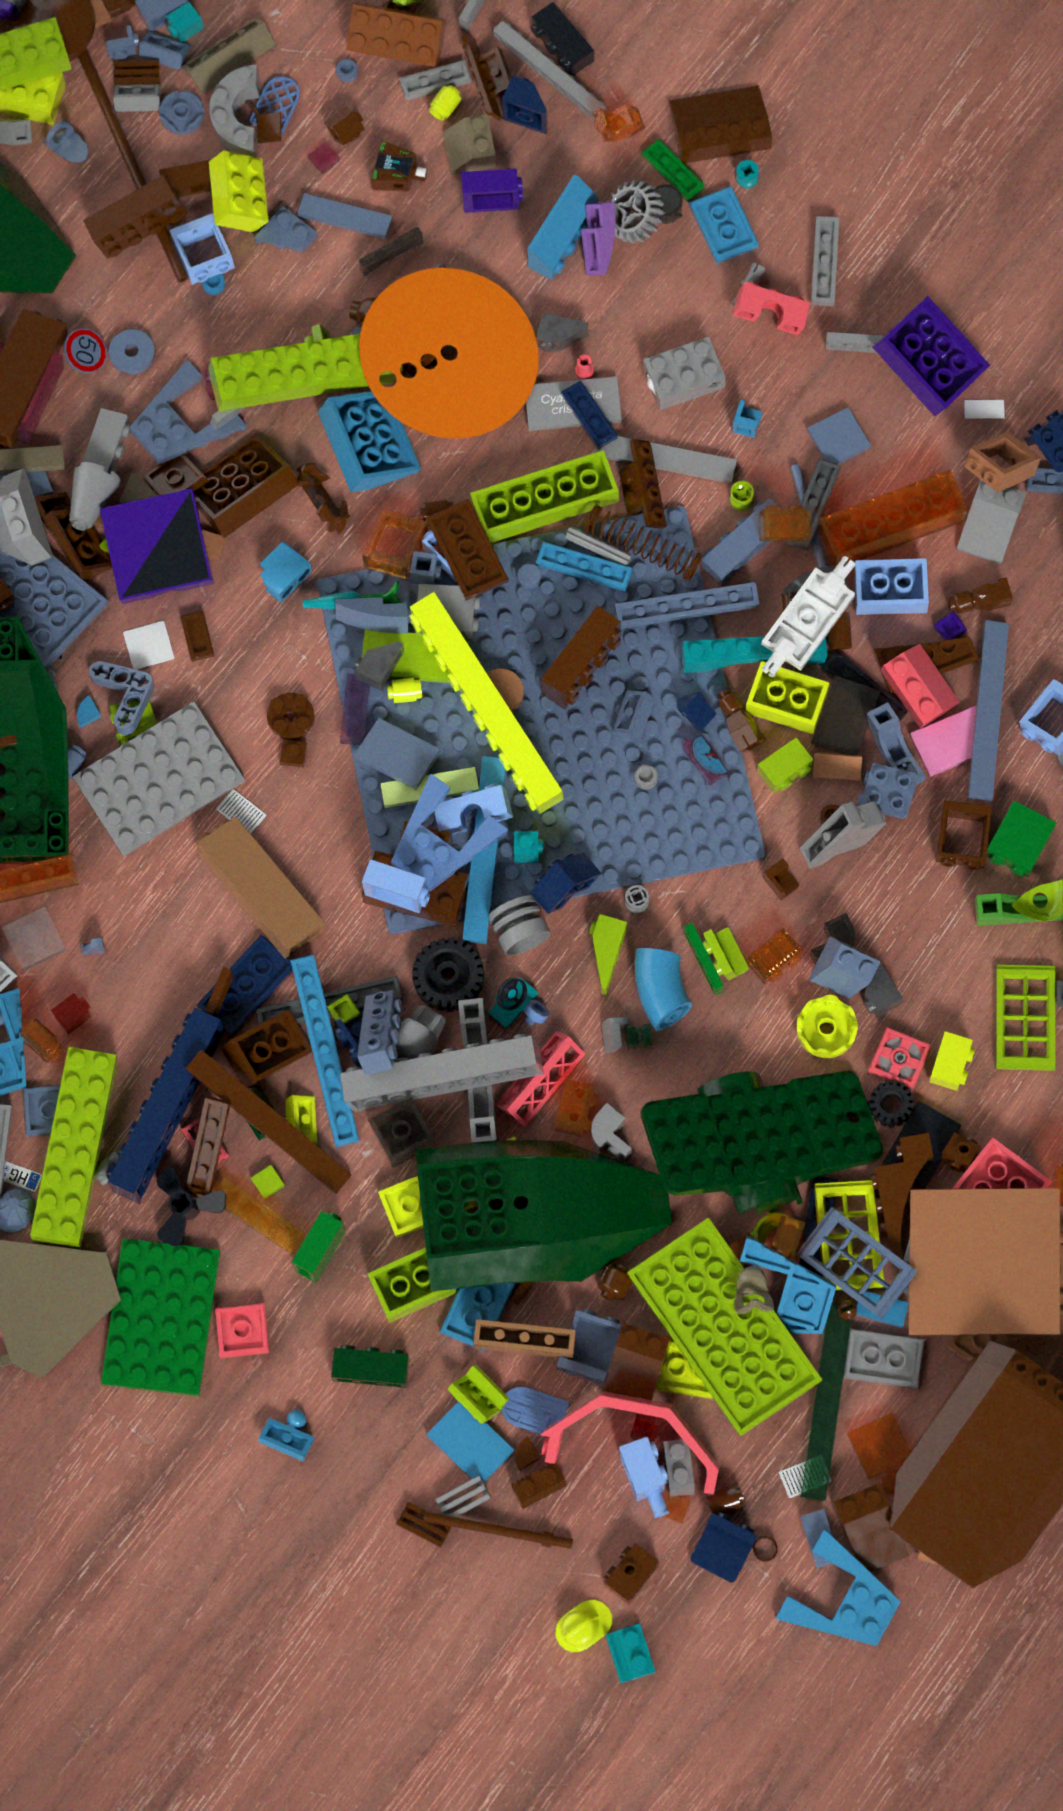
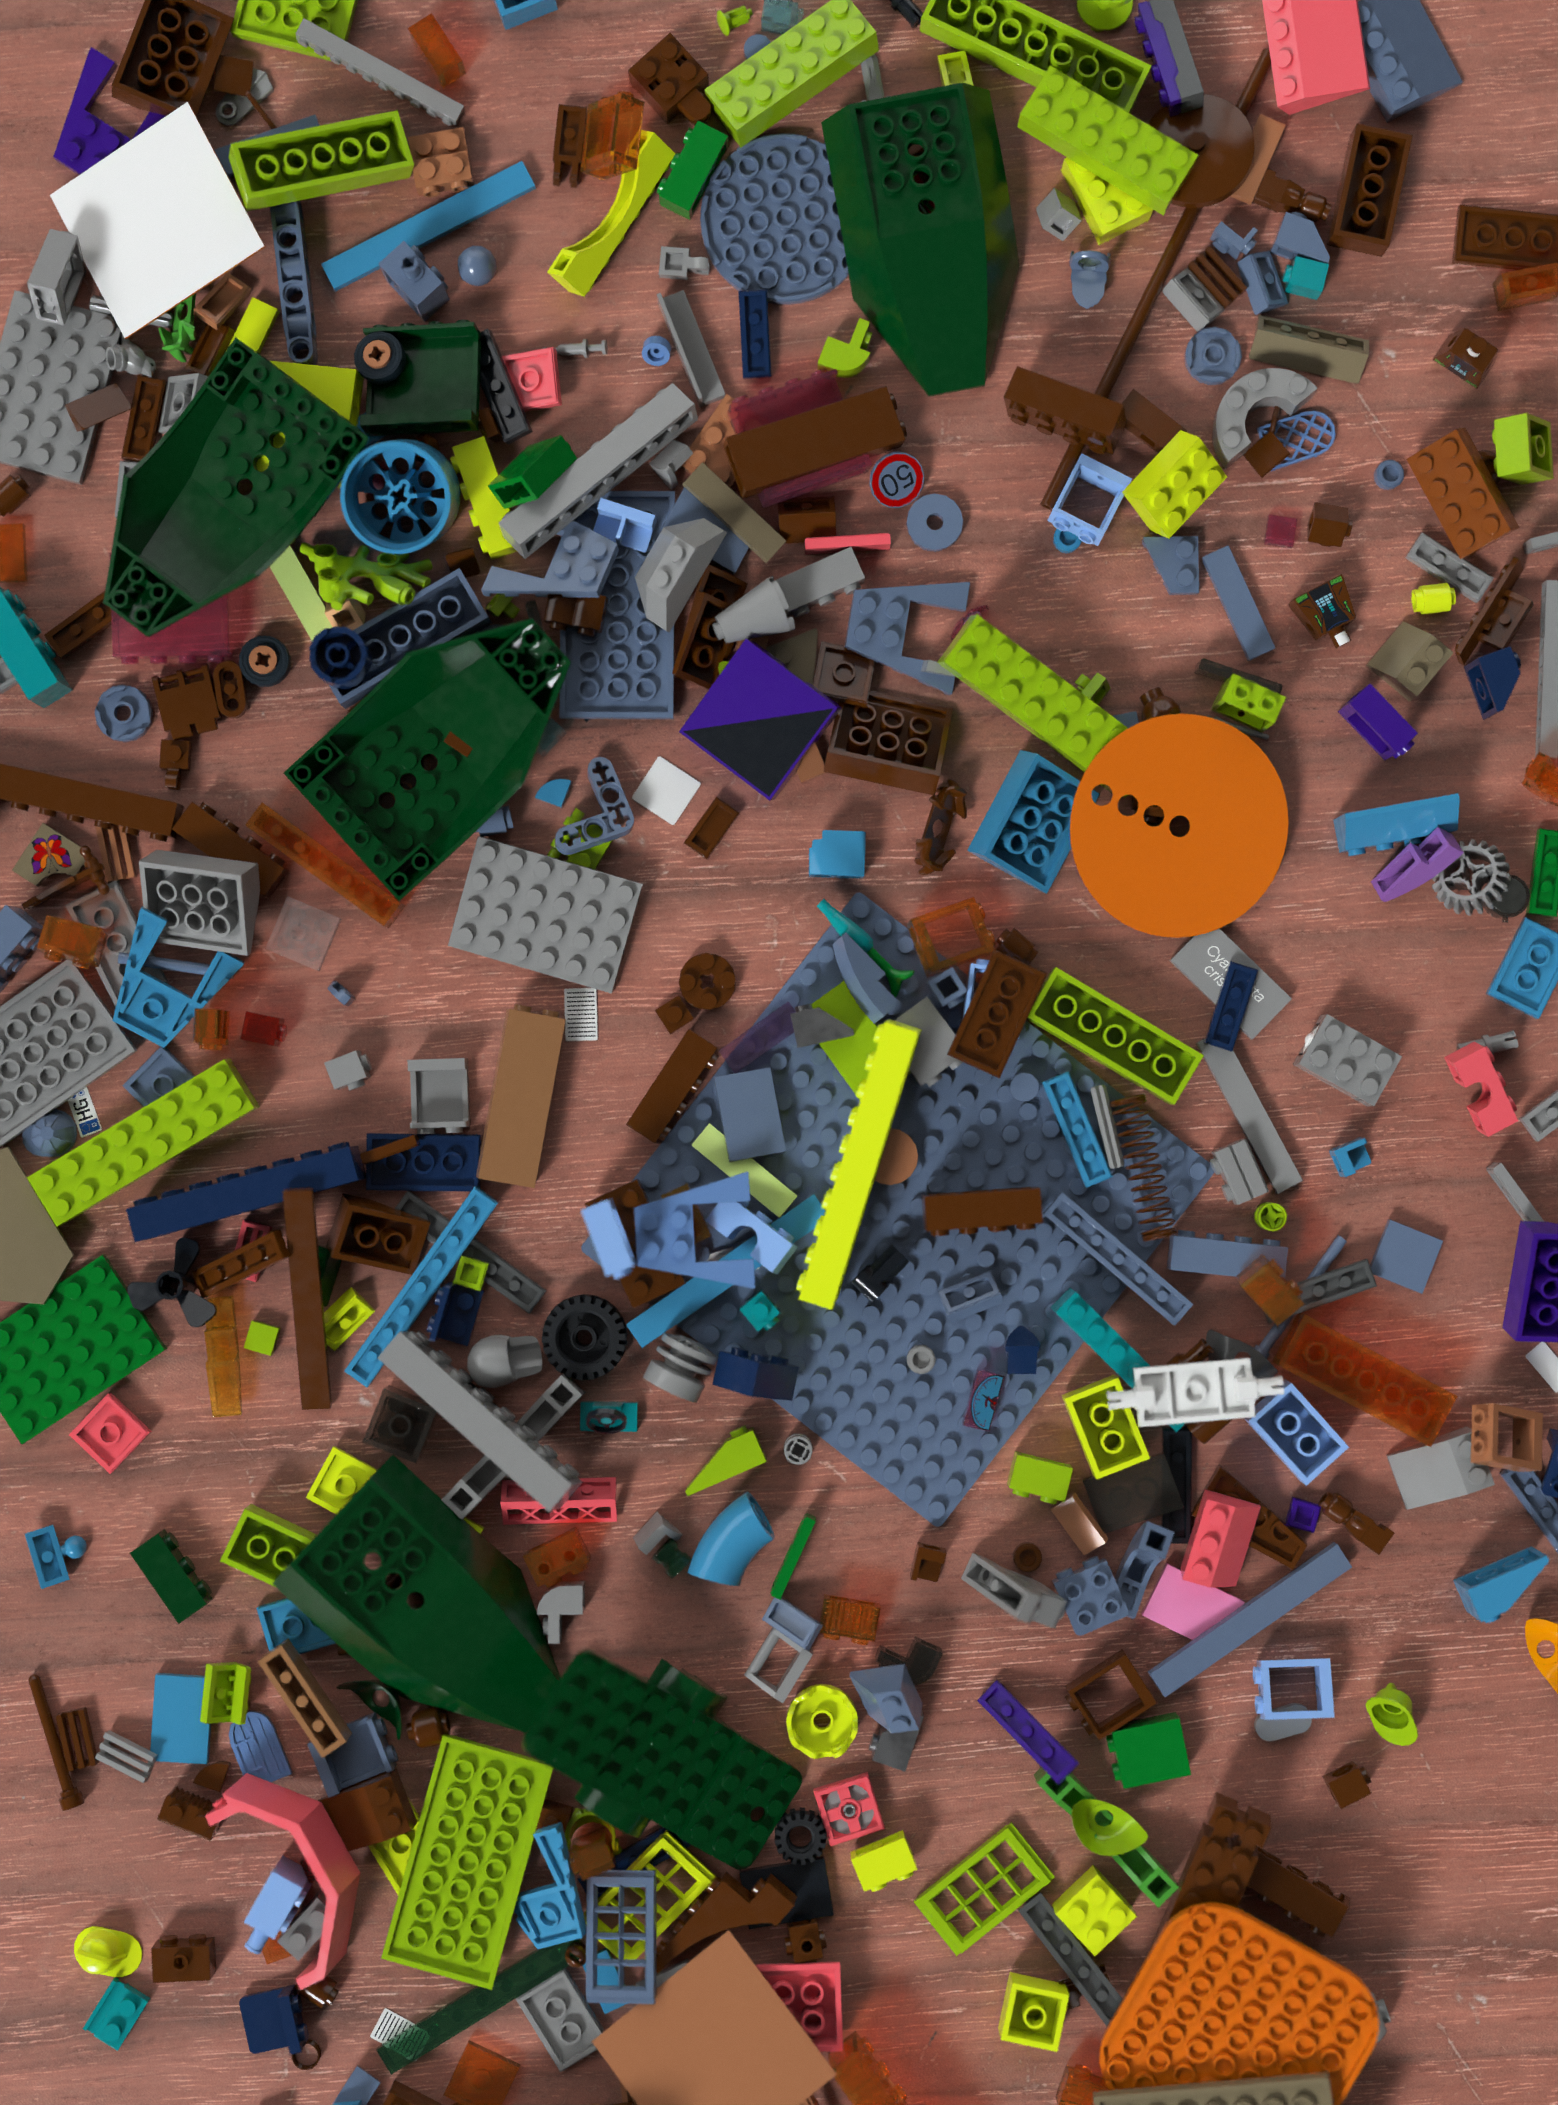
camera: 50 degrees right, 15 degrees up
(61, 423) = (806, 518): none -> reddish brown panel
(88, 420) = (835, 544): none -> coral tile
(104, 1166) = (150, 1182): light grey arm -> none
(146, 981) = (349, 1070): none -> light grey brick
(211, 938) = (439, 1094): none -> light grey panel
(319, 1246) = (235, 1441): green brick -> none
(337, 789) = (672, 1086): none -> reddish brown brick
(379, 1032) = (468, 1332): sand blue brick -> none
(401, 259) = (1257, 702): none -> lime window
(404, 690) = (816, 1068): neon yellow brick -> none
(456, 1559) = (70, 1796): none -> reddish brown piece
(536, 1012) = (616, 1447): medium blue tile -> none
(546, 1539) = (153, 1857): reddish brown bar -> none
(552, 1301) = (366, 1689): none -> dark green piece
(559, 332) = (1289, 907): flat silver slope -> none
(569, 760) = (876, 1277): none -> black piece
(584, 367) = (1267, 961): coral pin -> none
(642, 486) = (1201, 1116): reddish brown bracket -> none
(697, 492) = (1239, 1172): none -> light grey brick
(726, 952) = (815, 1572): lime bracket -> none
(740, 723) = (1044, 1404): reddish brown piece -> none
(745, 992) = (792, 1622): none -> sand blue tile
(752, 1281) = (525, 1857): dark tan piece -> none
(785, 1037) = (790, 1676): none -> light grey tile
(942, 900) = (1028, 1732): none -> dark purple tile

